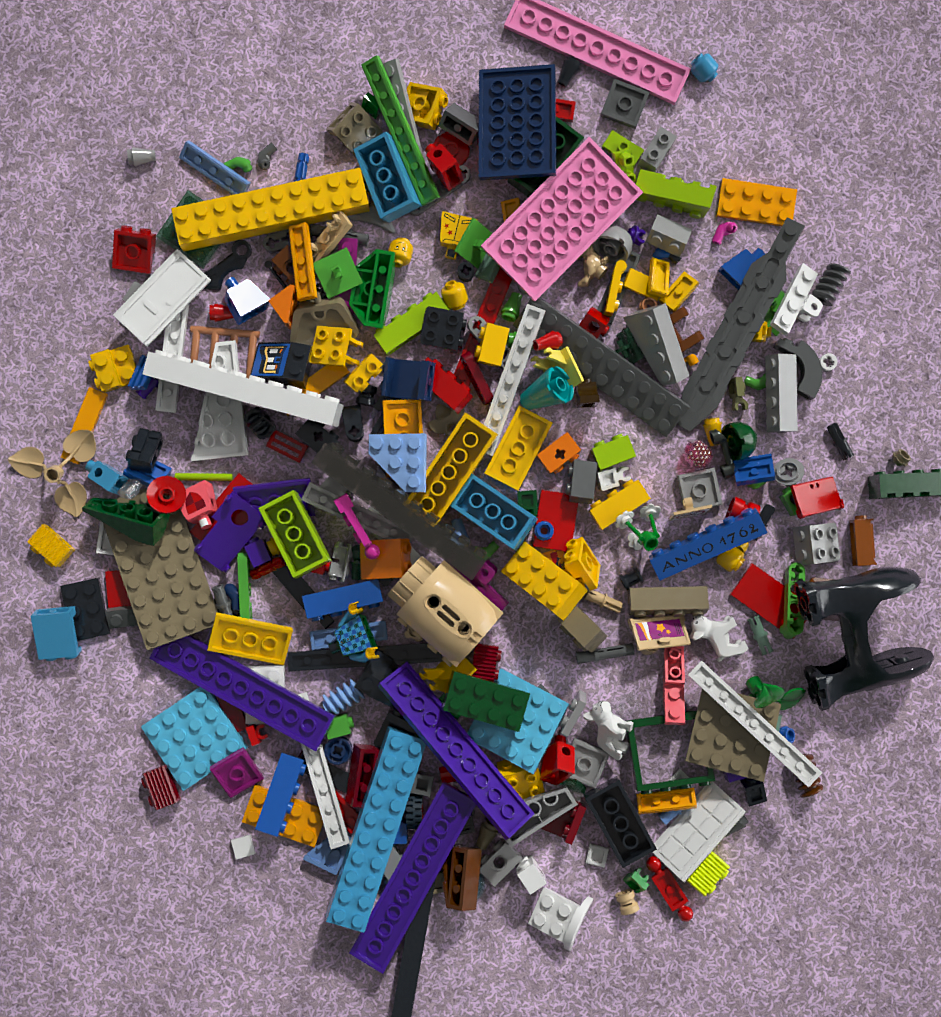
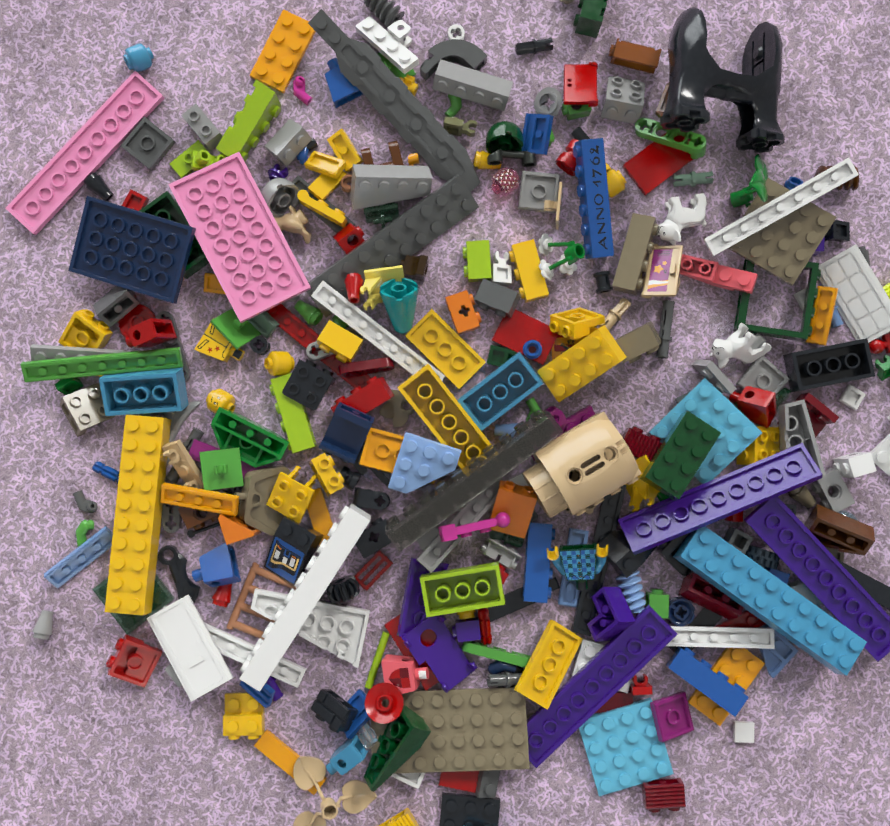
camera: 70 degrees left, 0 degrees up
(316, 684) = (613, 614): none -> dark purple brick

